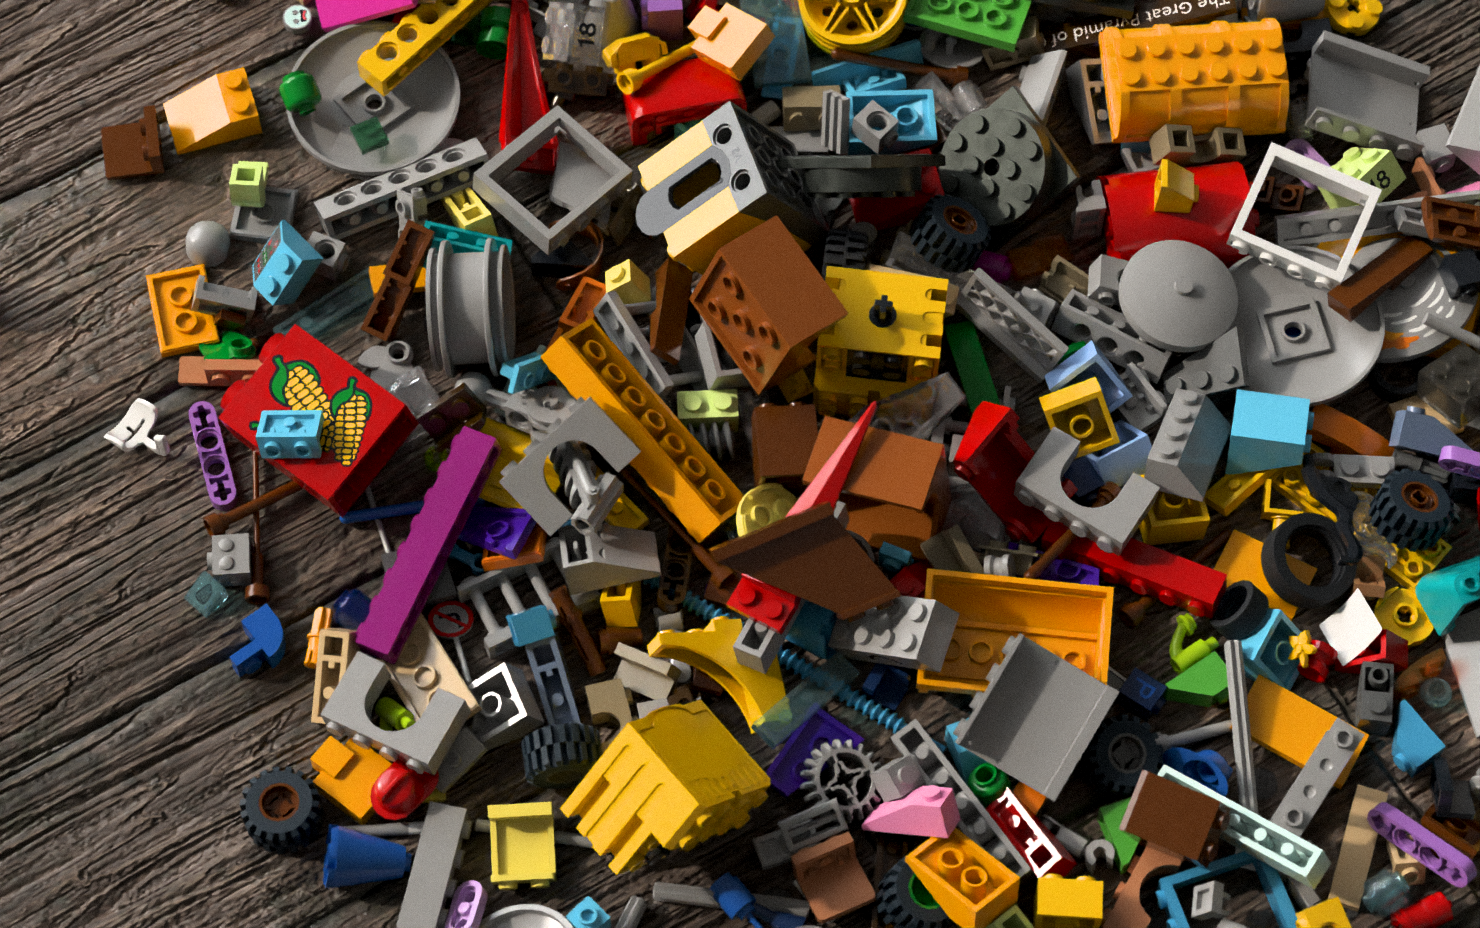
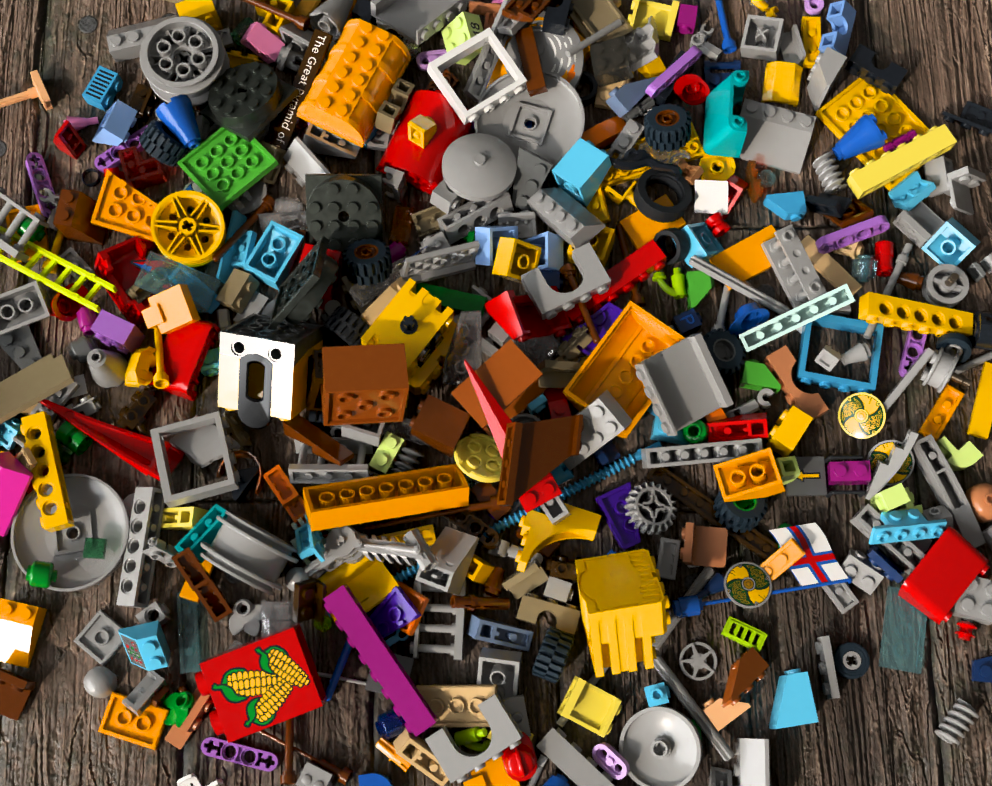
camera: 55 degrees left, 10 degrees up
(248, 184) = (79, 637): yellowish green brick -> none
(290, 433) = (268, 706): medium azure bracket -> none
(453, 621) = (428, 670): piece -> none
(527, 478) = (371, 530): light grey arch -> none
(531, 625) = (465, 628): dark azure brick -> none
(573, 33) = (107, 394): clear brick -> none
(628, 282) = (283, 454): light yellow brick -> none
(805, 700) = (595, 501): clear light blue tile -> none
(806, 814) = (667, 538): light grey tile -> none
(835, 121) = (256, 283): light grey tile -> none
(875, 116) = (278, 270): light grey brick -> none
(897, 778) = (670, 478): light grey brick -> none
(921, 812) = (697, 481): bright pink slope -> none
(1000, 566) = (580, 353): light grey wheel -> none
(1175, 819) = (782, 347): reddish brown slope -> none
(1301, 647) = (711, 227): yellow plant -> none
(1374, 698) = (755, 209): dark grey slope -> none

